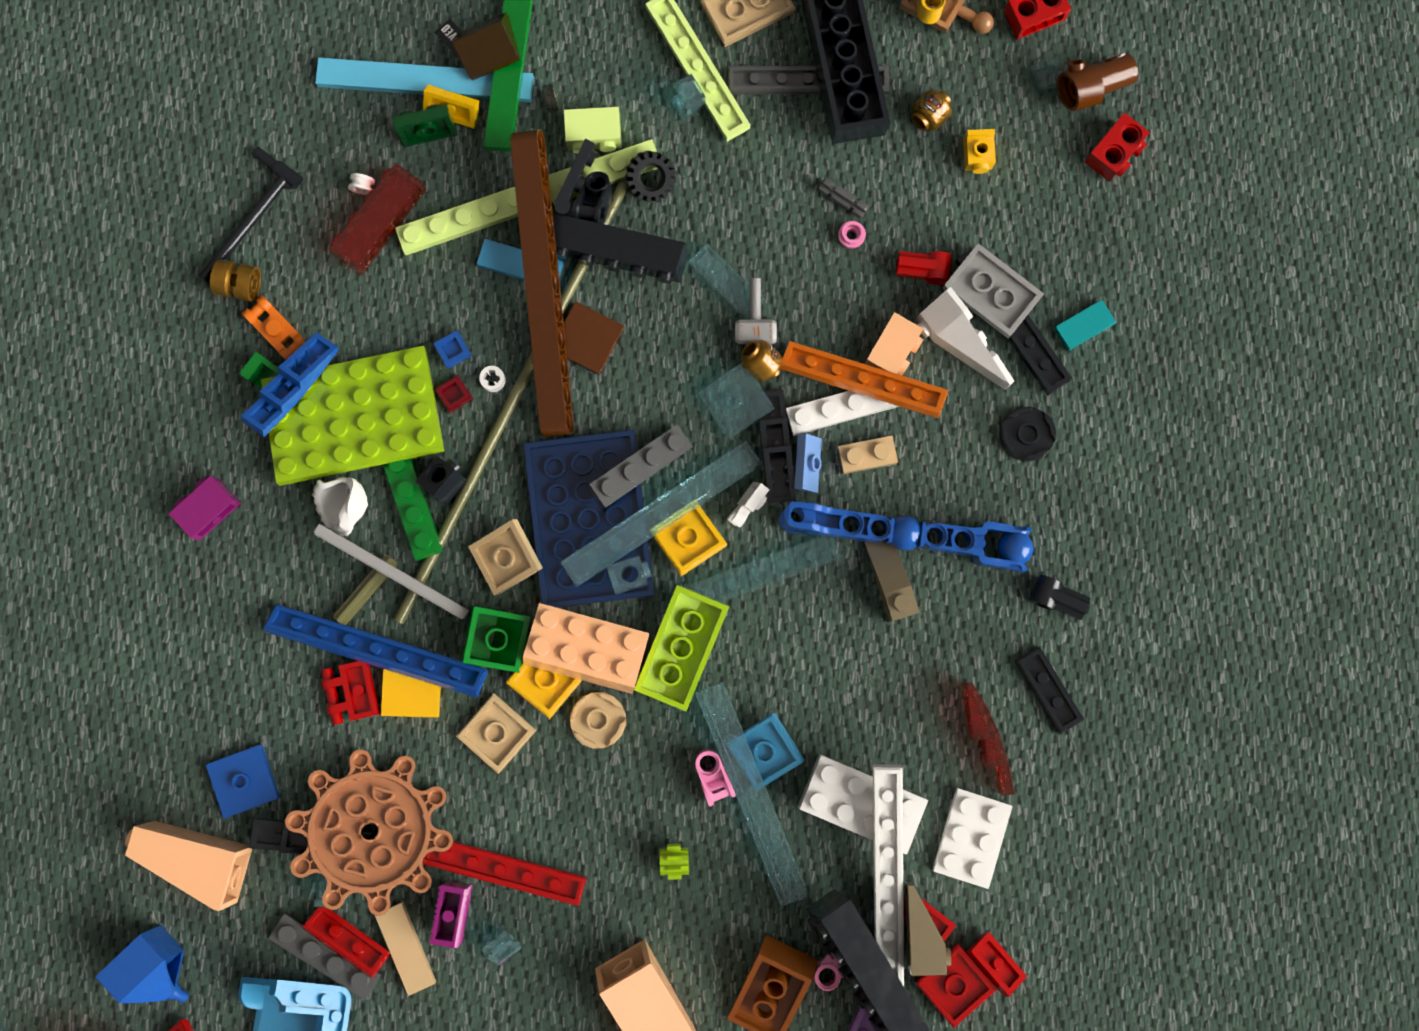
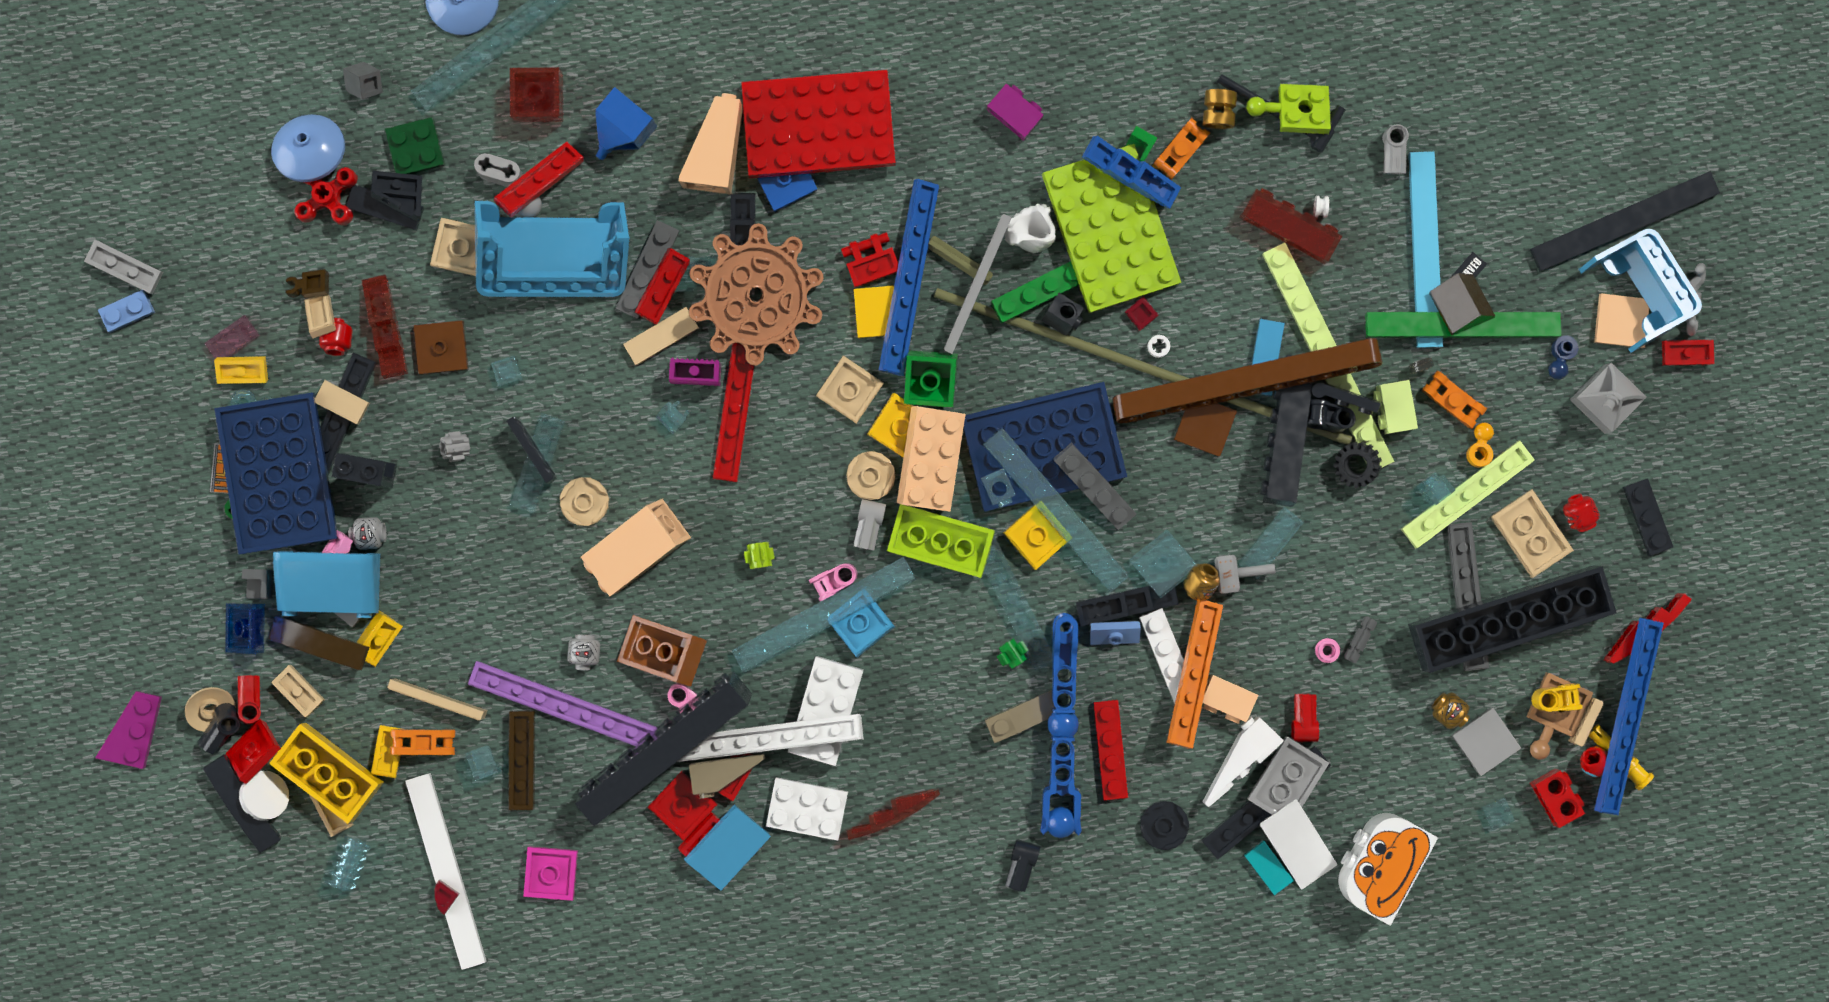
camera: 85 degrees right, 5 degrees up
(184, 736) = (818, 124): none -> red plate
(255, 203) = (1291, 117): none -> lime plate
(311, 98) = (1395, 152): none -> light grey piece
(425, 125) = (1381, 264): dark green plate -> none
(452, 349) = (1180, 308): blue plate -> none
(462, 108) = (1402, 277): yellow plate -> none
(505, 557) = (1002, 378): tan plate -> none
(593, 68) = (1454, 400): none -> orange plate
(633, 42) = (1483, 432): none -> light orange plate
(646, 726) = (869, 519): none -> light grey piece
(751, 500) = (1077, 587): white plate -> none
(819, 581) = (1012, 653): none -> green gear
(867, 454) = (1129, 685): tan plate -> none
(938, 484) = (1110, 749): none -> red plate
(968, 78) = (1486, 741): none -> light grey tile
(977, 161) = (1407, 755): yellow brick -> none
(1009, 938) = (727, 847): none -> dark azure tile
(1049, 690) = (940, 864): black tile -> none
(1063, 288) = (1298, 844): none -> white sticker
(1087, 83) = (1490, 847): reddish brown piece -> none
(1096, 197) = (1384, 864): none -> brick
(1118, 148) = (1437, 879): red brick -> none

